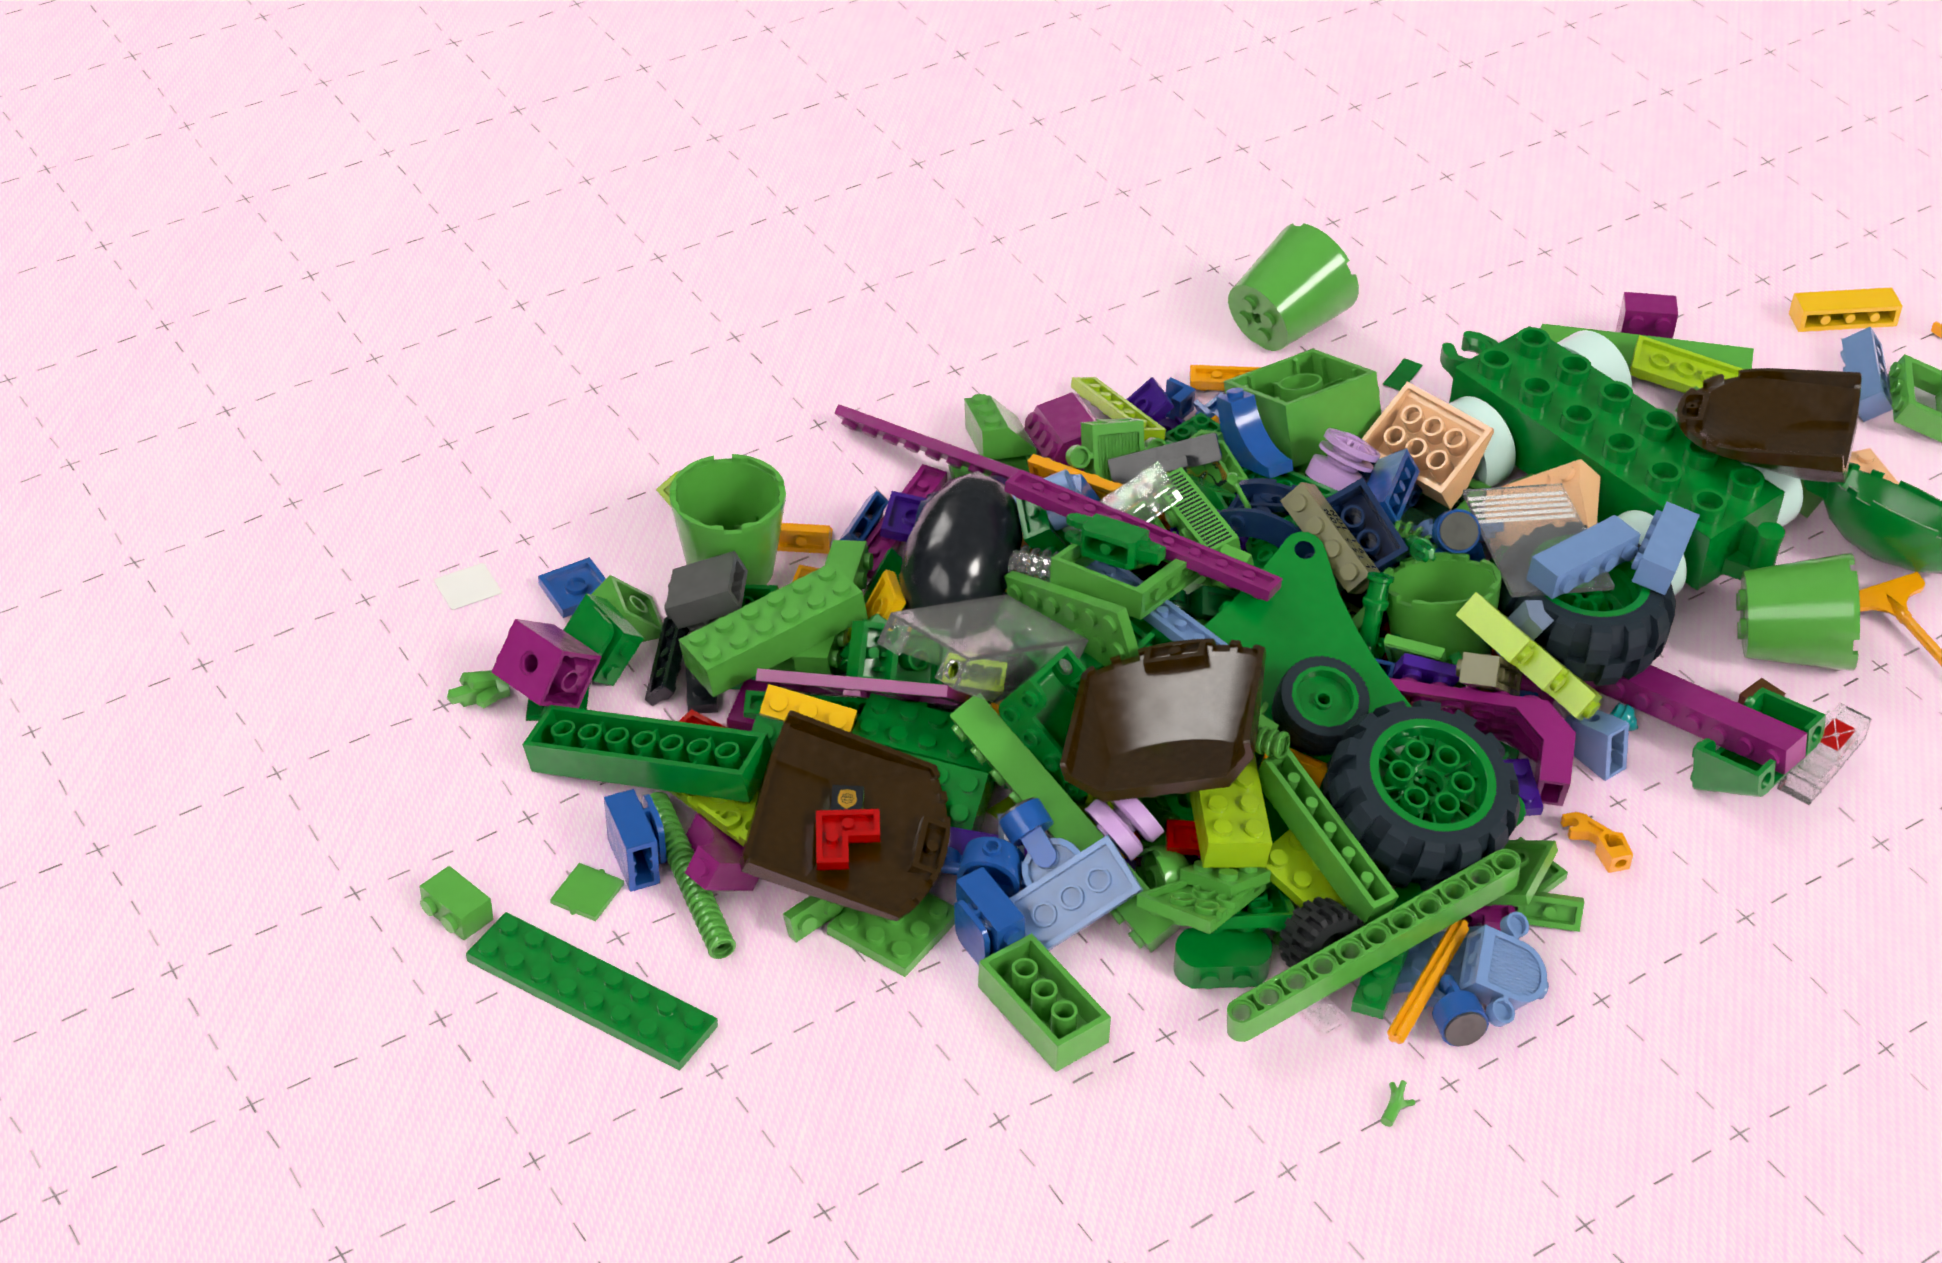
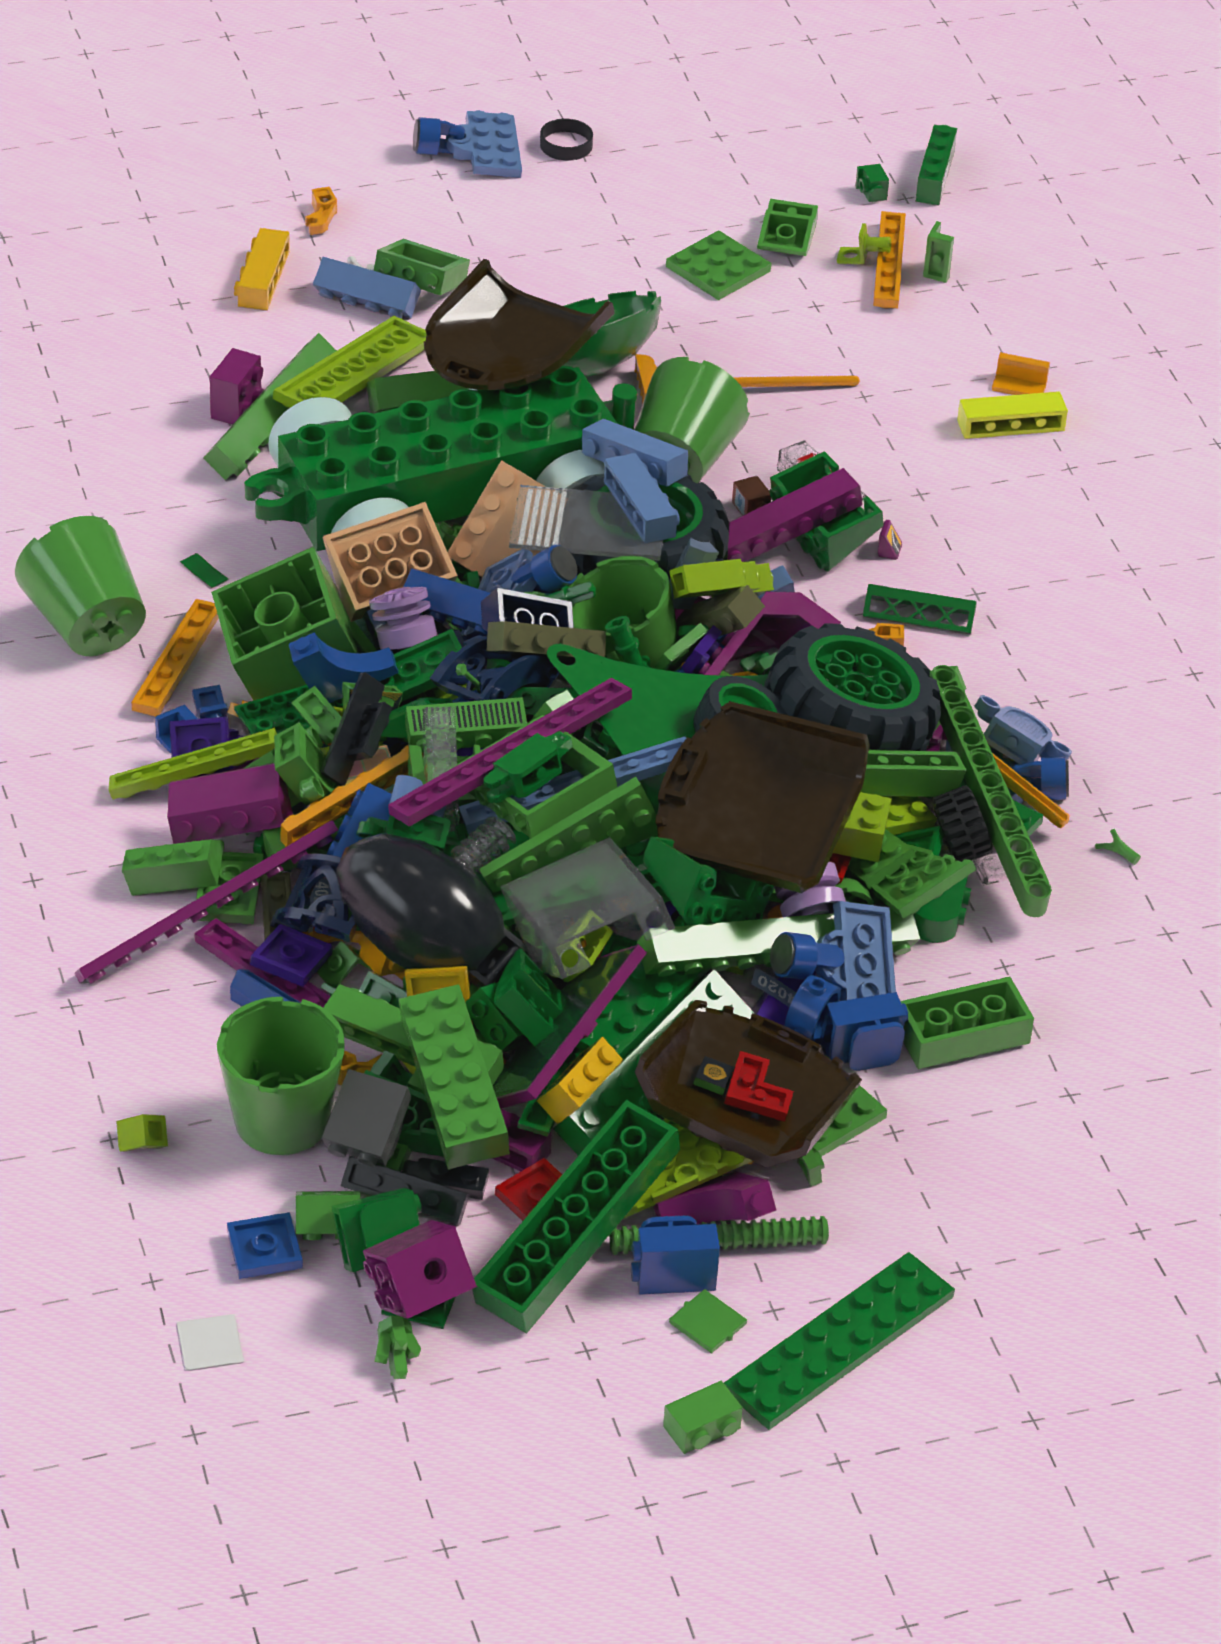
camera: 75 degrees left, 0 degrees up
(1690, 867) = (922, 600): none -> green fence
(1771, 824) = (889, 542): none -> magenta slope

